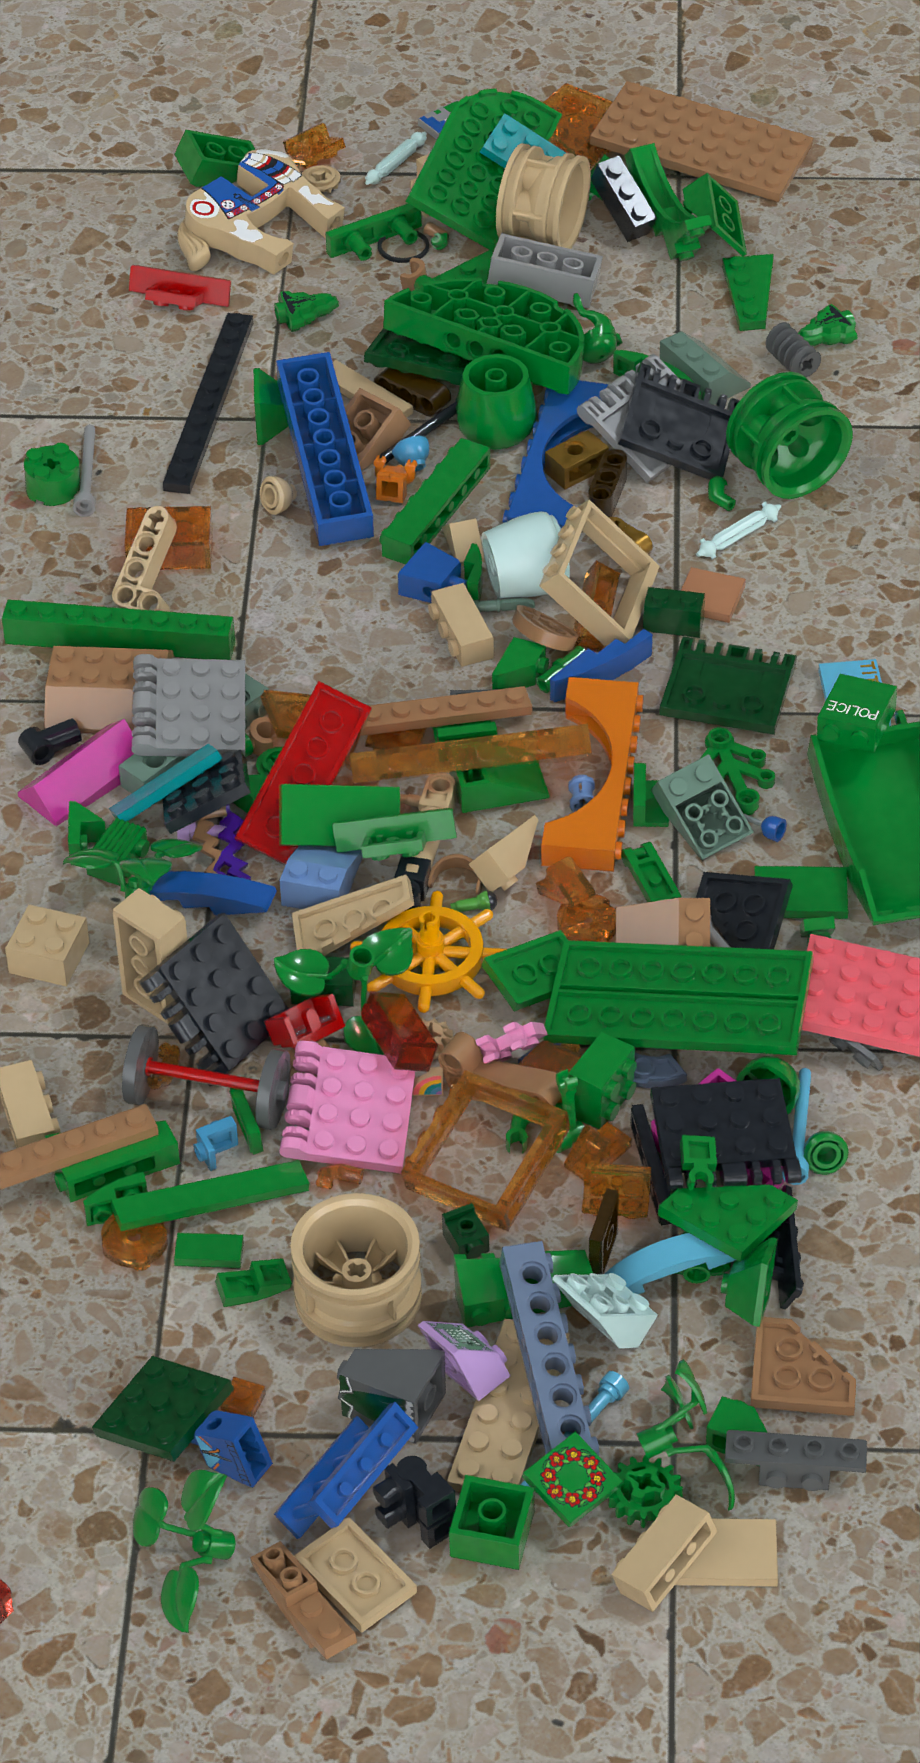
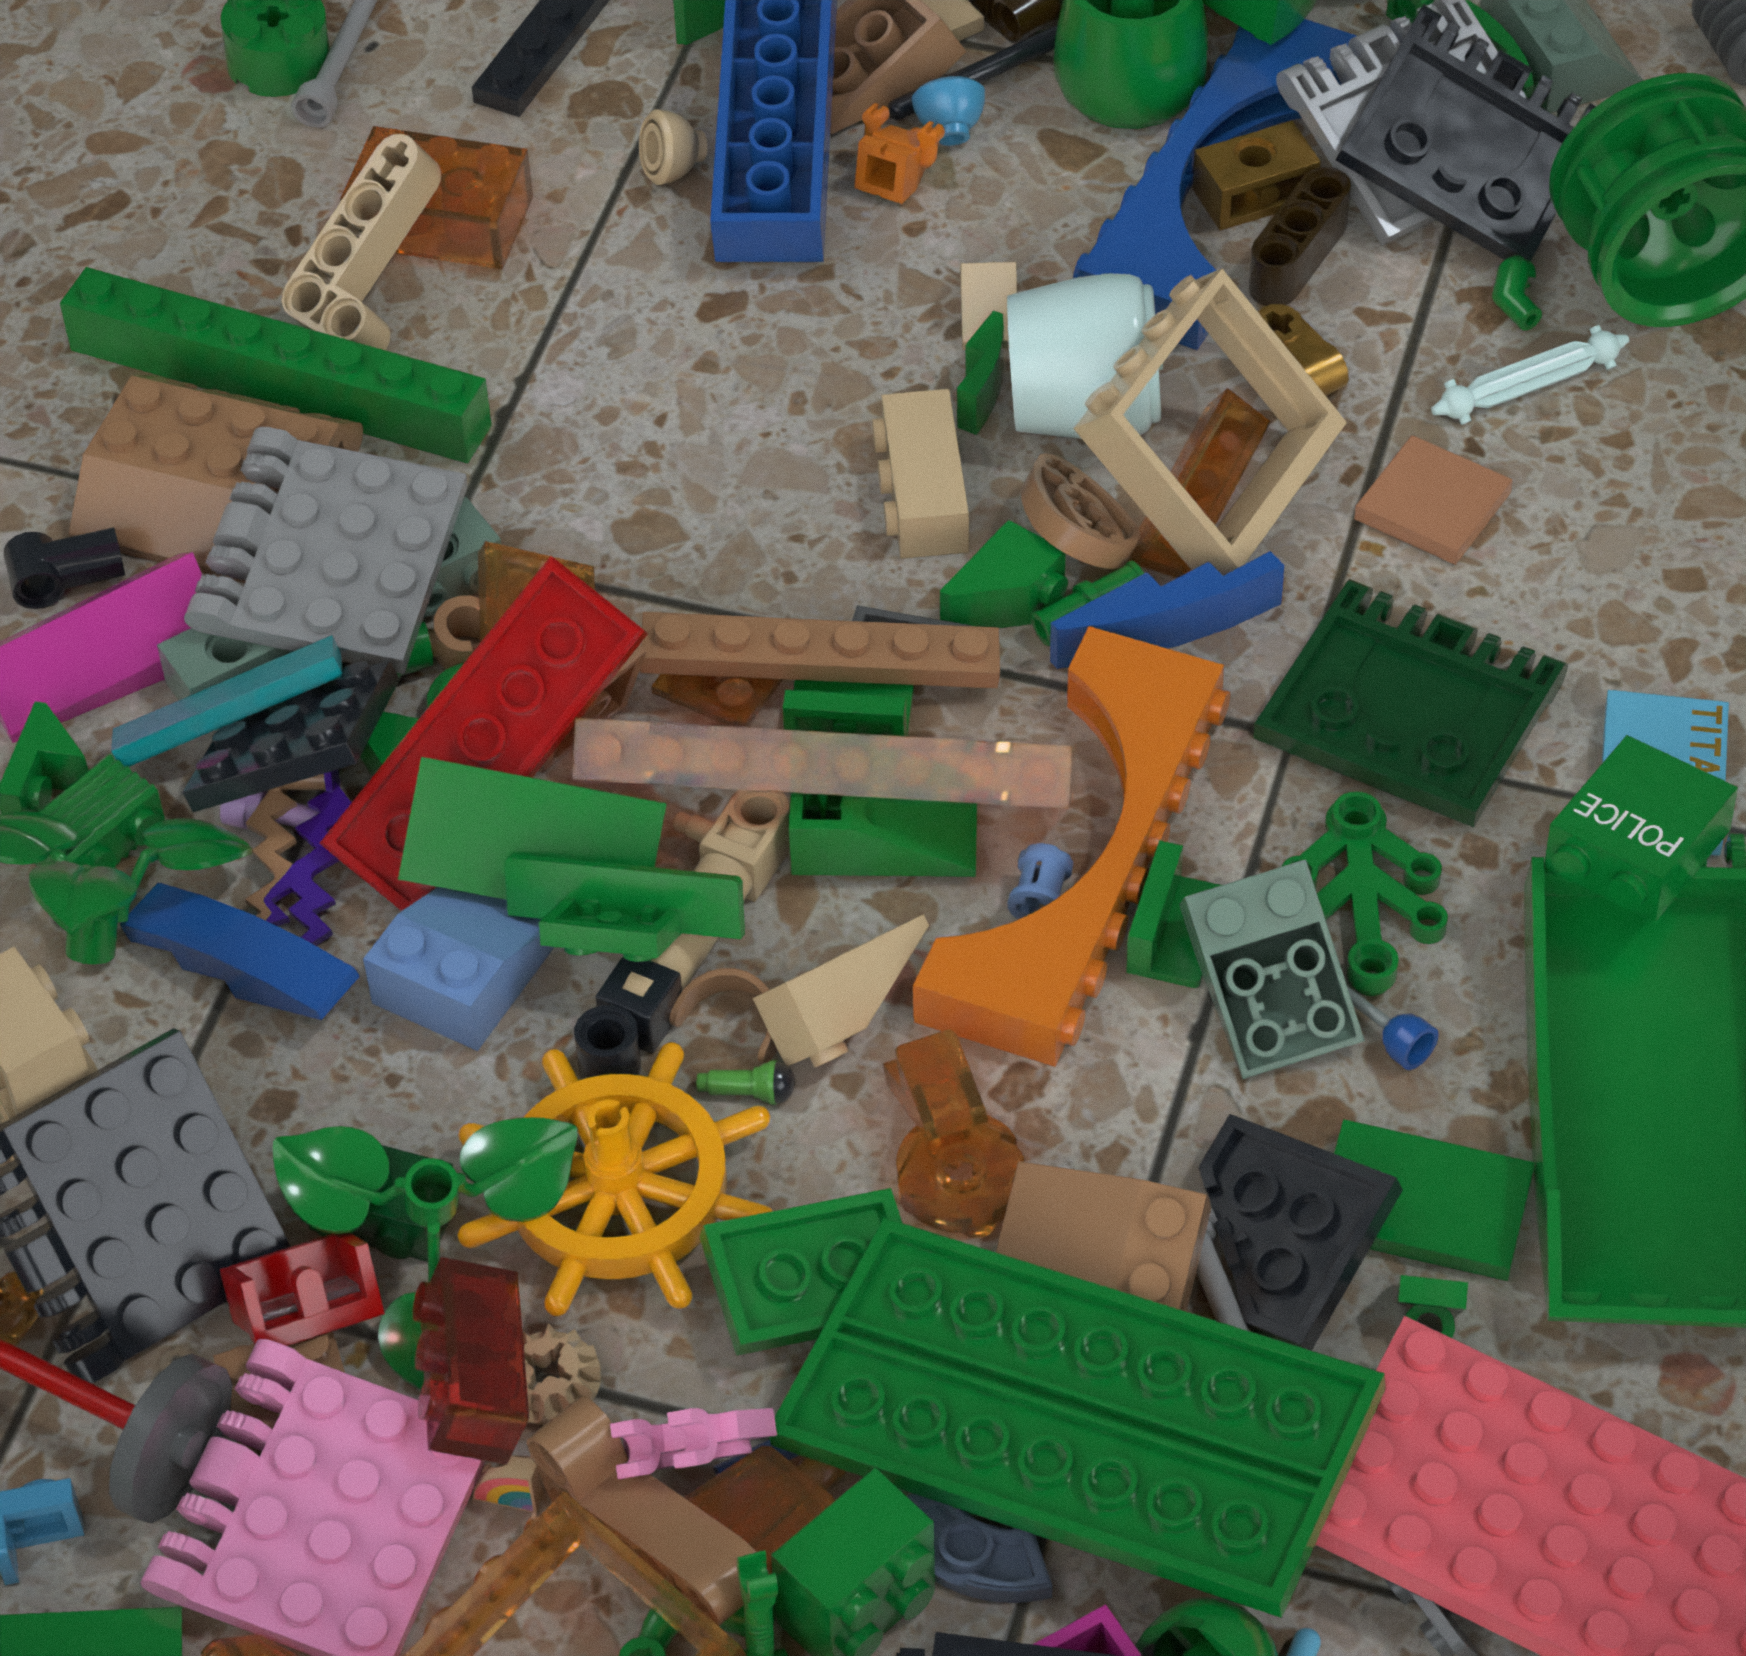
camera: 15 degrees right, 5 degrees up
(246, 1120) = (105, 1524): green tile -> none
(351, 915) = (467, 1067): tan wing -> none
(428, 571) = (896, 353): blue torso -> none
(435, 500) = (959, 213): green brick -> none
(504, 604) = (1011, 444): sand green piece -> none
(650, 873) = (1123, 1100): green plate -> none
(674, 612) = (1346, 524): dark green brick -> none

